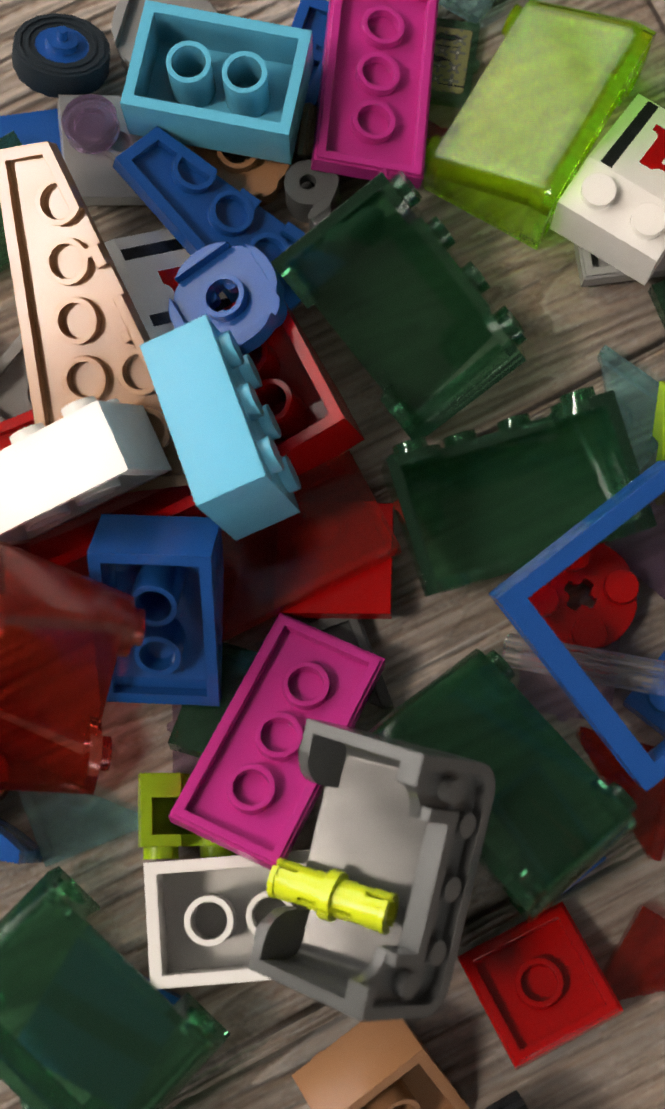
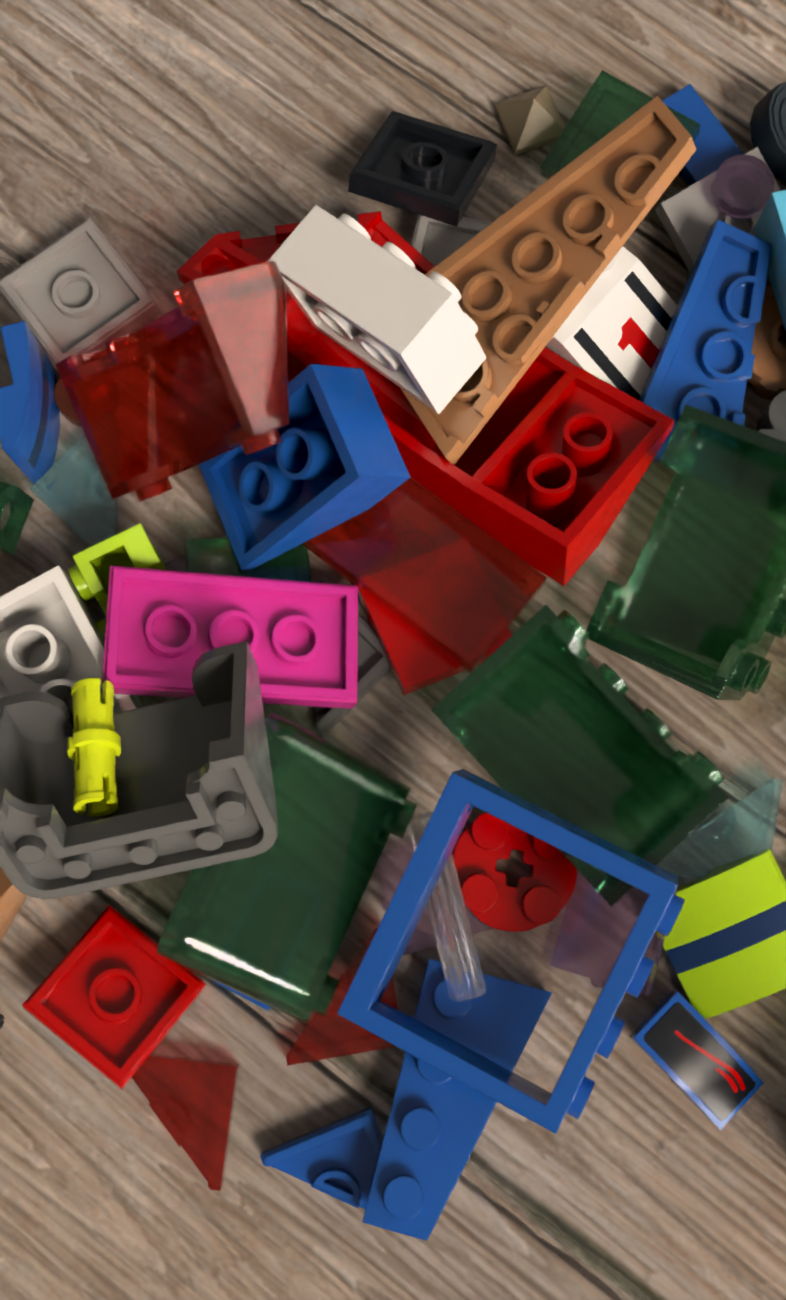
camera: 65 degrees right, 0 degrees up
(221, 428) = (492, 431): medium azure brick -> none
(238, 269) = (630, 417): plate -> none

